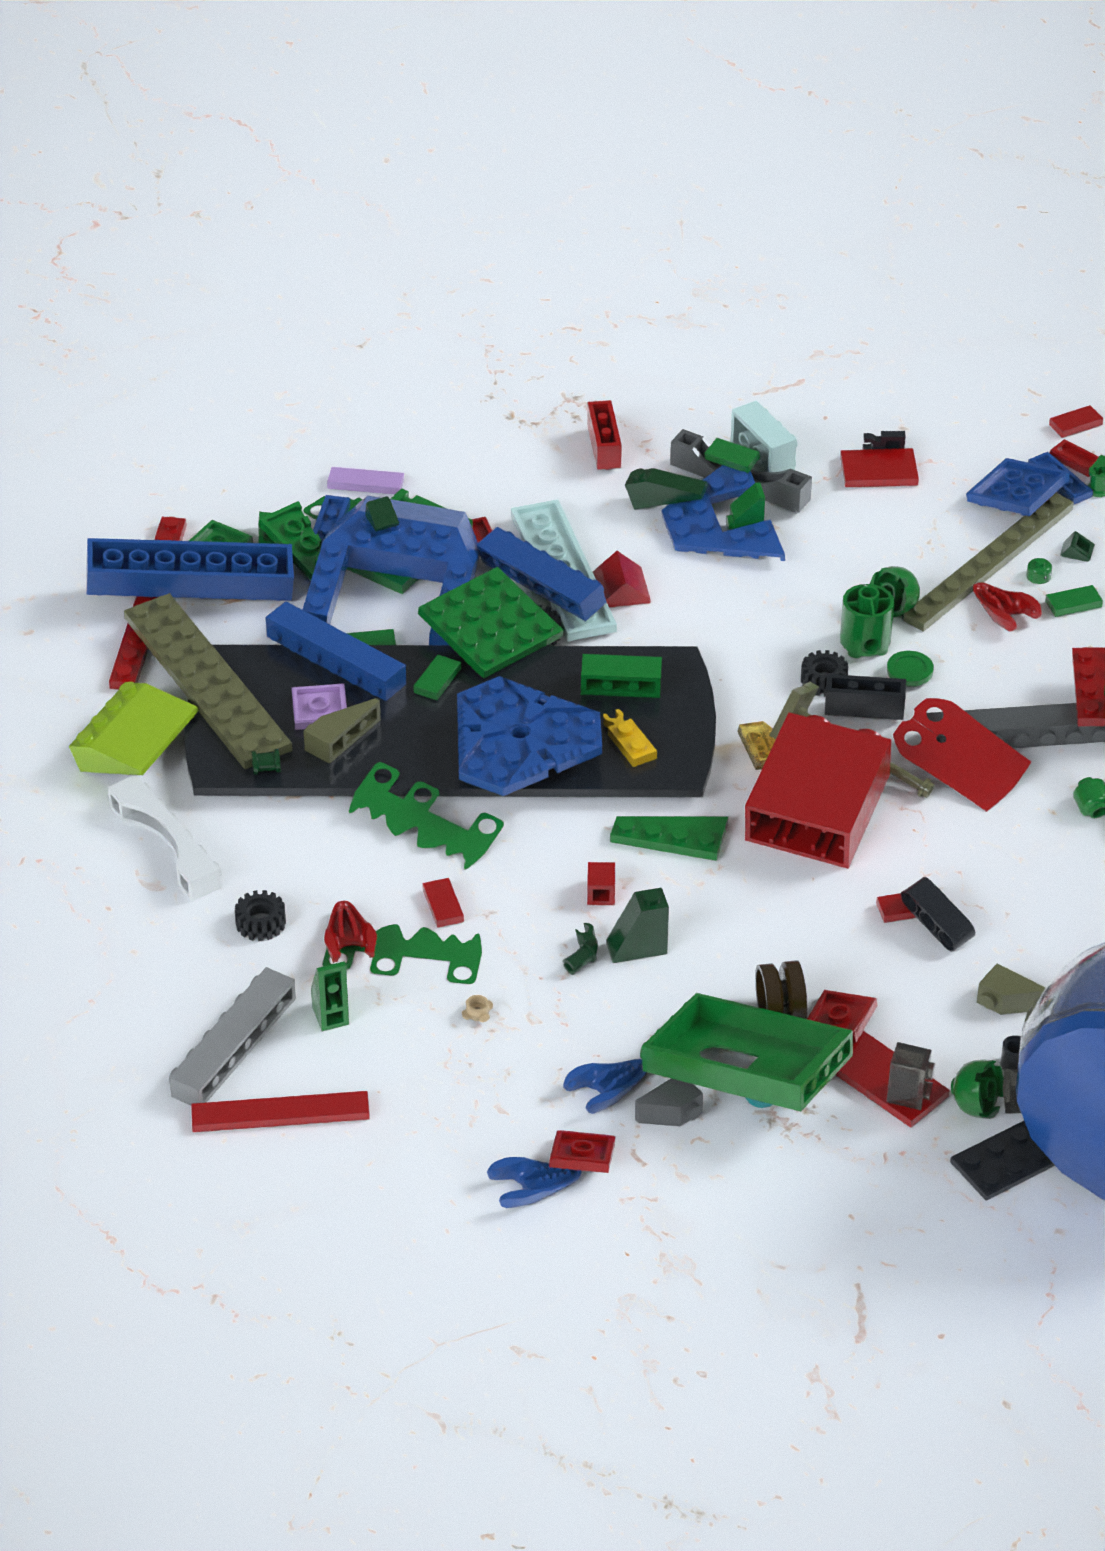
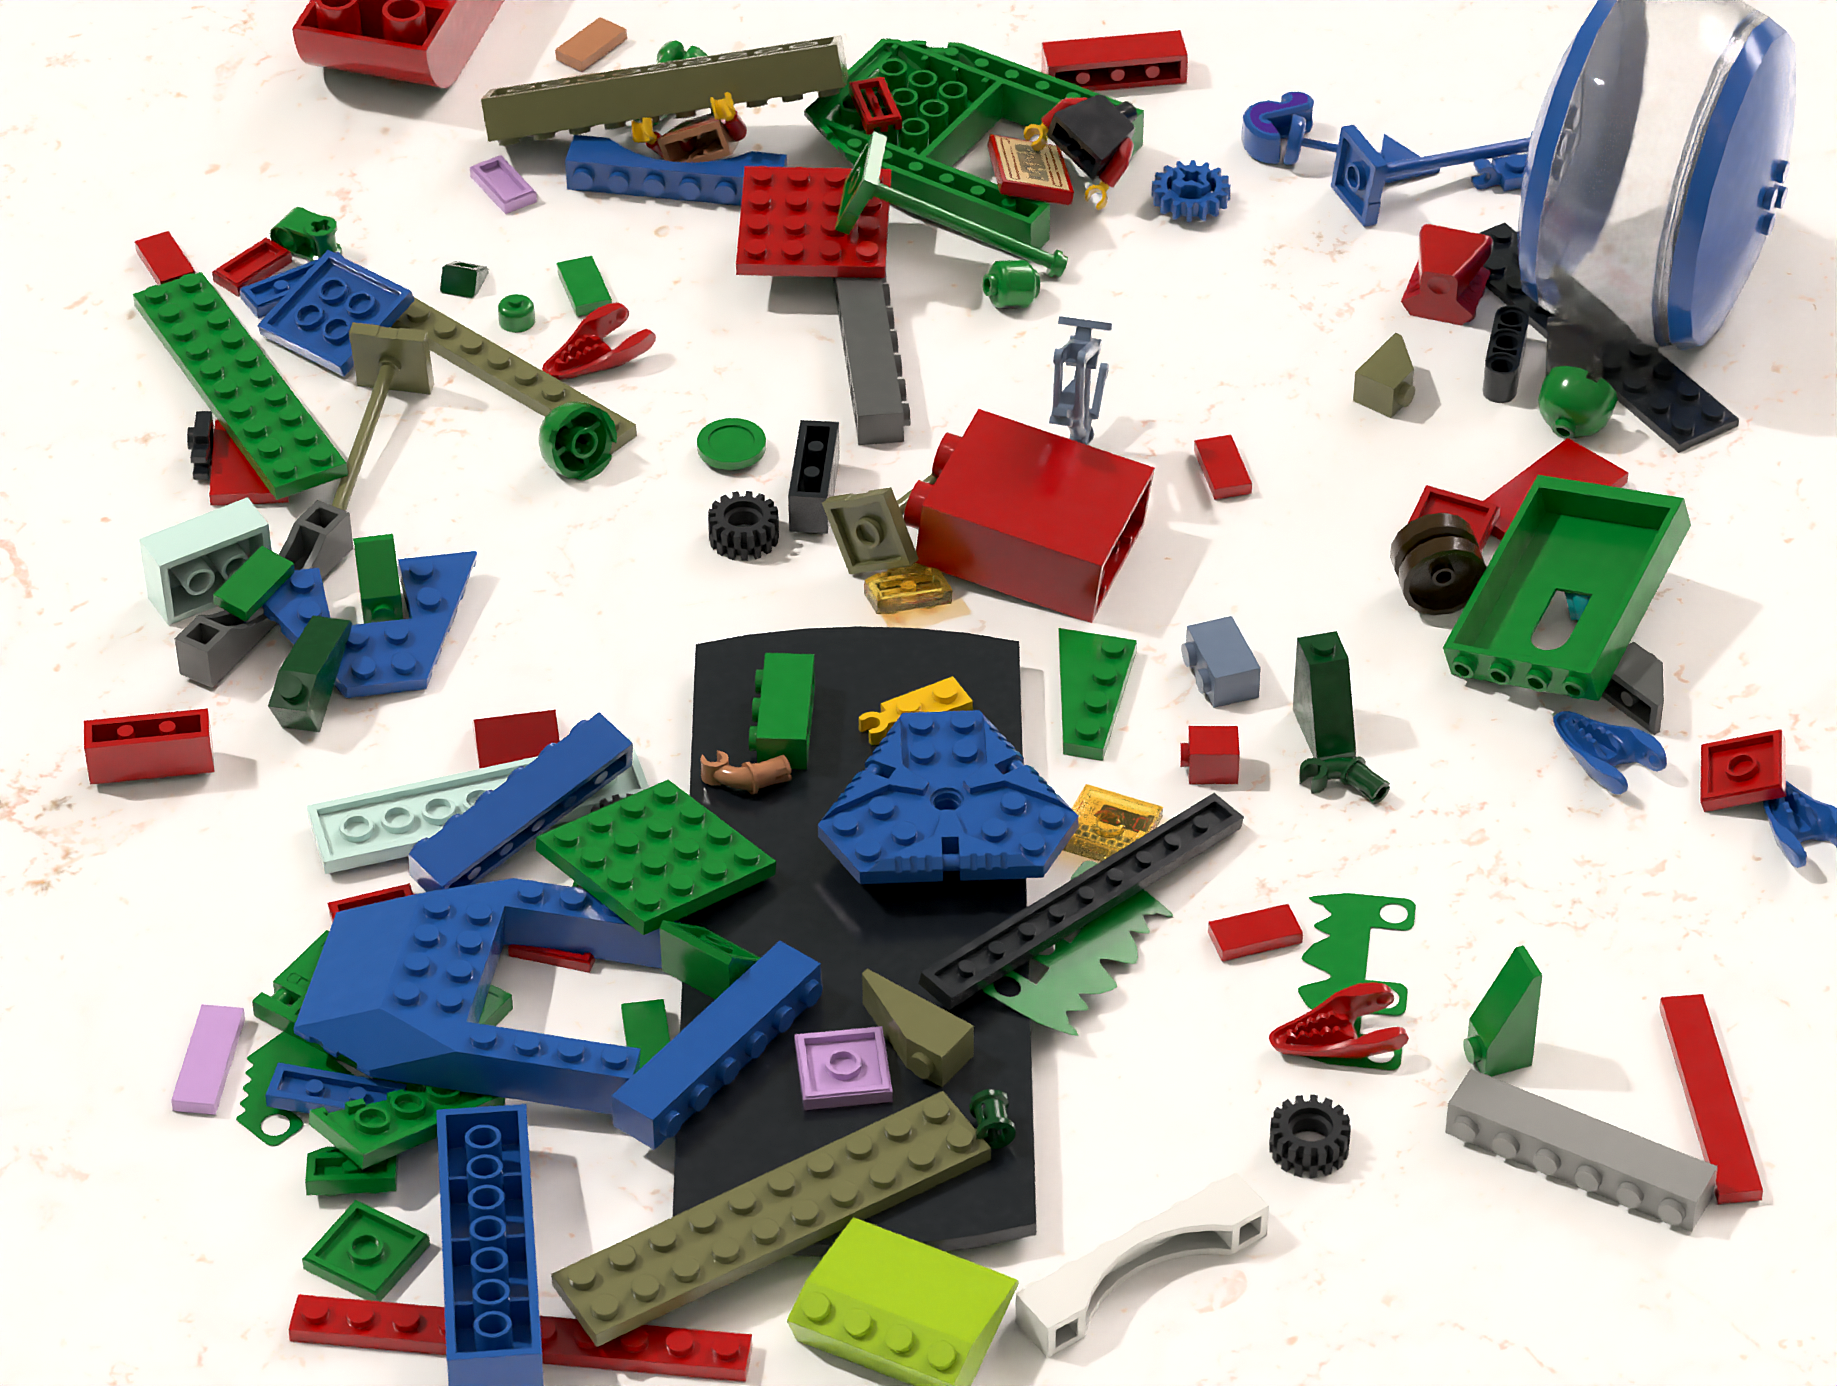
camera: 90 degrees left, 0 degrees up
(381, 514) = (412, 966): dark green slope -> none
(407, 642) = (702, 958): none -> green slope
(437, 677) = (770, 923): green tile -> none
(458, 812) = (1080, 901): none -> black plate
(477, 1008) = (1476, 887): tan plate -> none
(542, 839) = (1109, 822): none -> clear yellow tile
(565, 660) = (748, 776): none -> nougat piece
(694, 891) = (1221, 661): none -> sand blue brick
(866, 620) = (658, 460): green cylinder -> none
(910, 1076) = (1588, 441): clear smoke brick -> none
(935, 776) = (1072, 404): none -> sand blue piece
(938, 914) = (1256, 426): black beam -> none
(945, 453) = (240, 385): none -> green plate
(961, 506) = (383, 361): none -> olive tile
(970, 758) = (944, 381): red piece -> none

